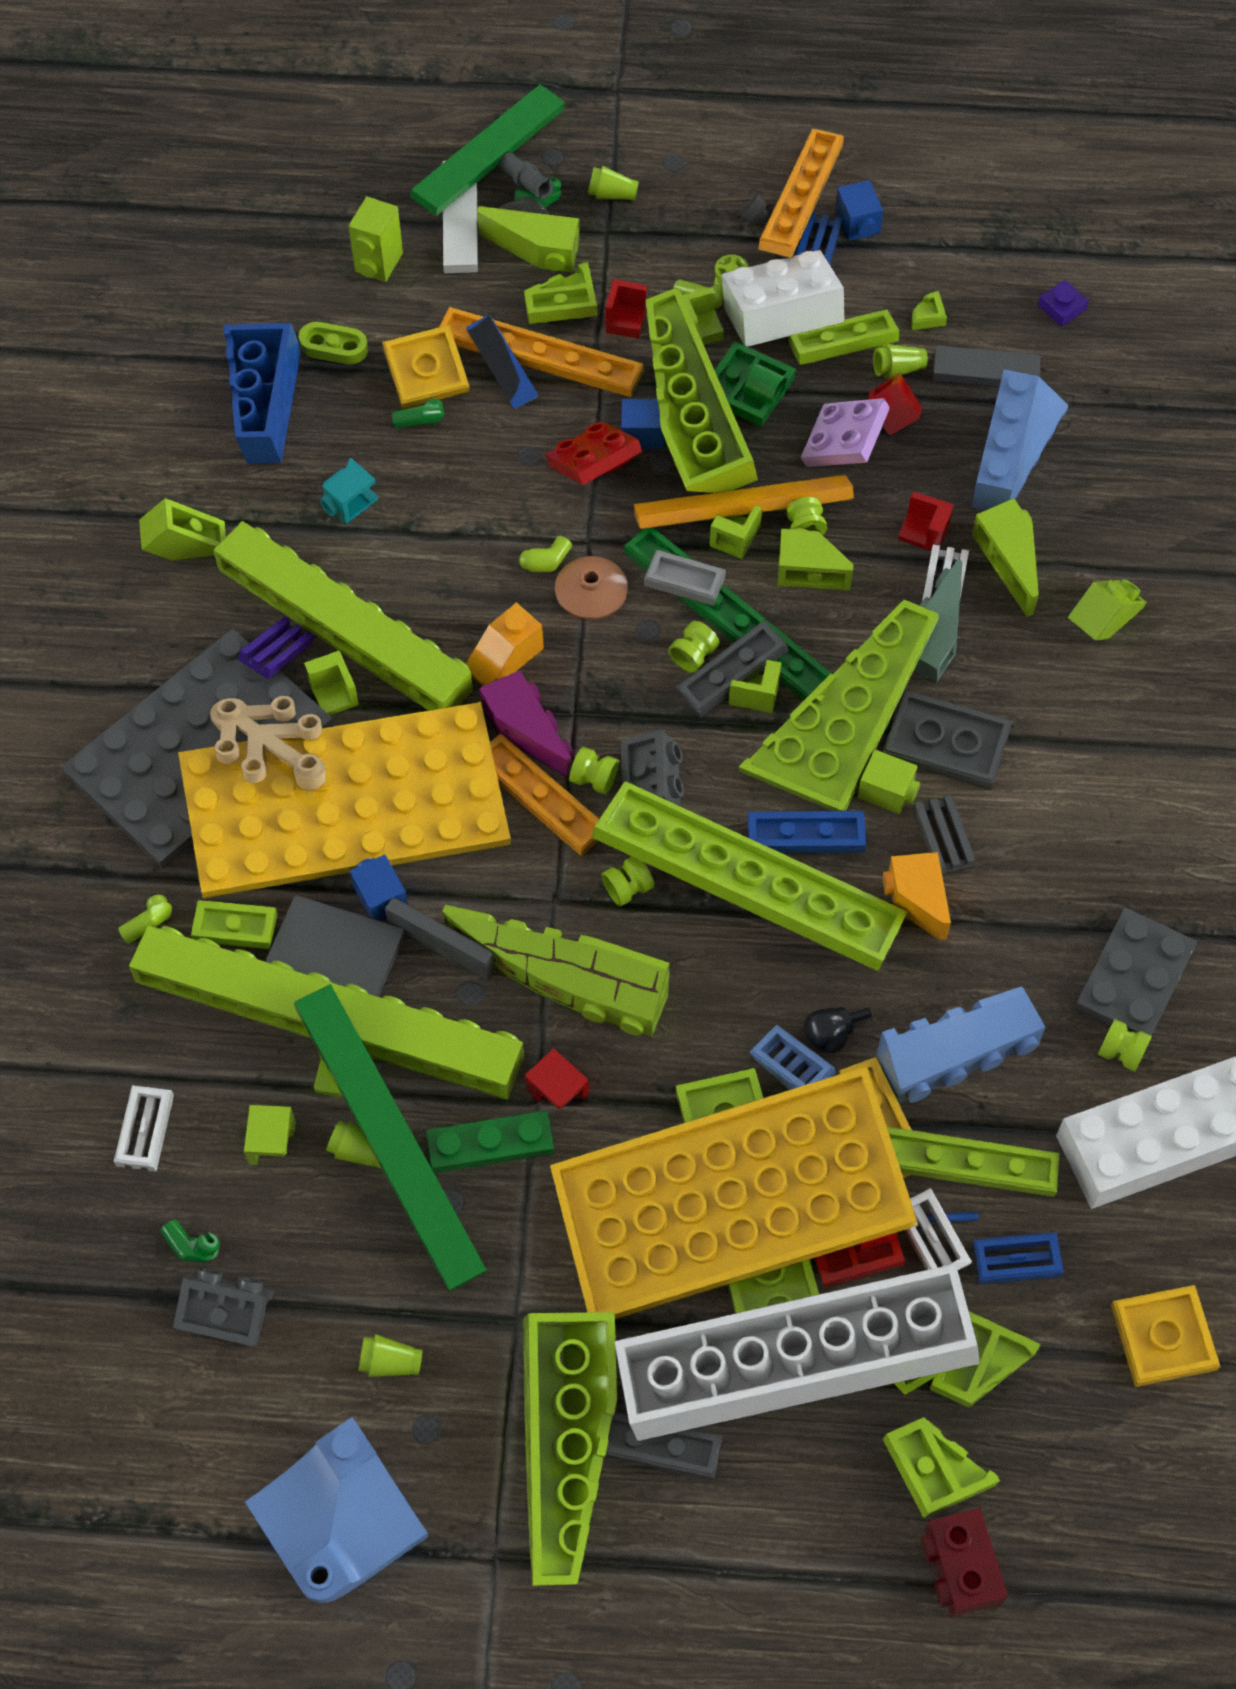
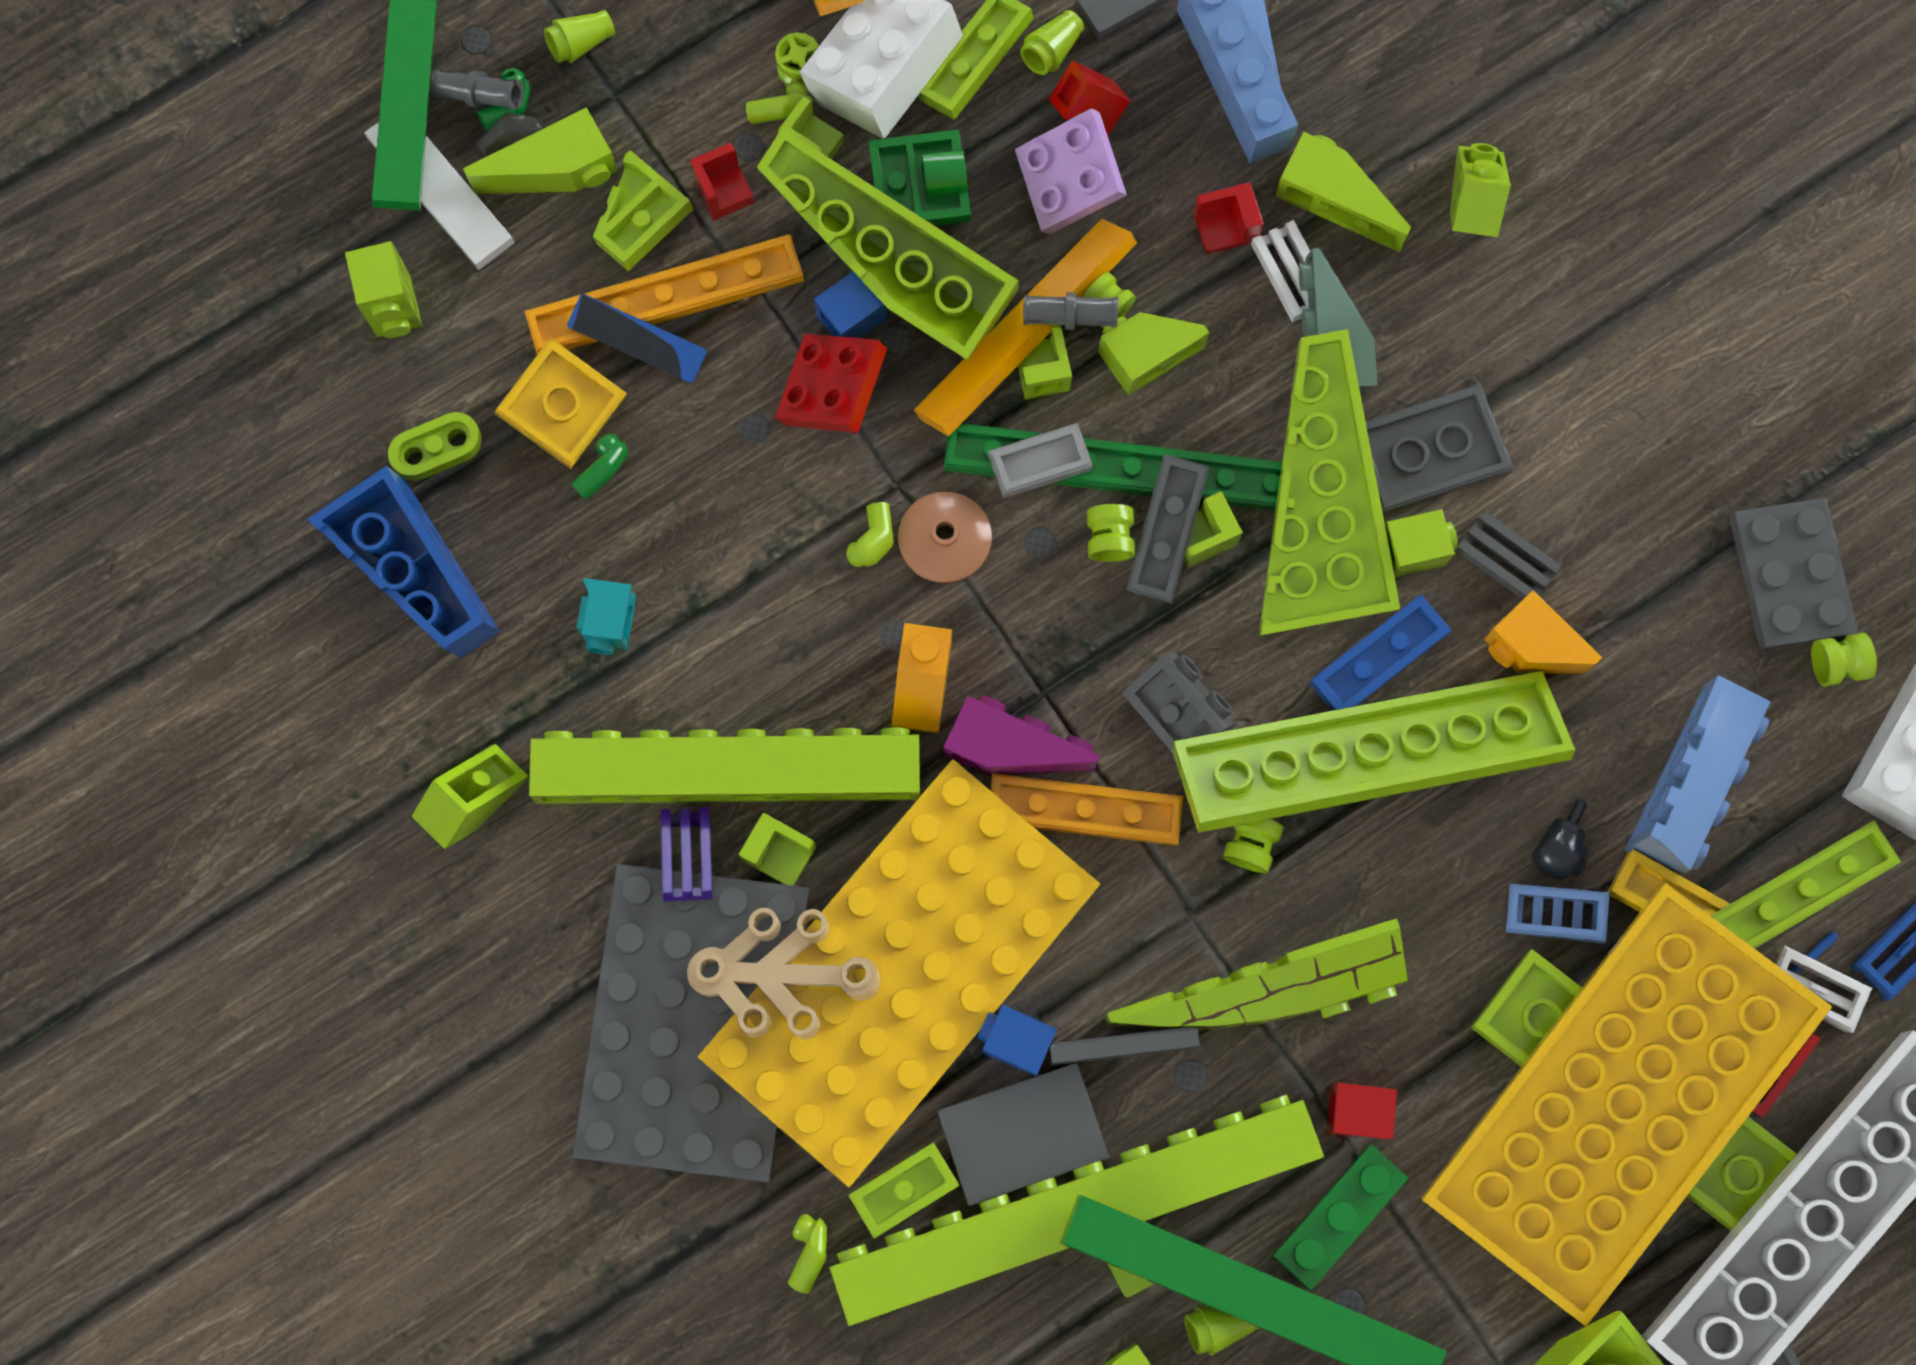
camera: 40 degrees left, 15 degrees up
(592, 769) = (1124, 746): lime wheel -> none
(773, 501) = (1070, 311): none -> dark grey pin

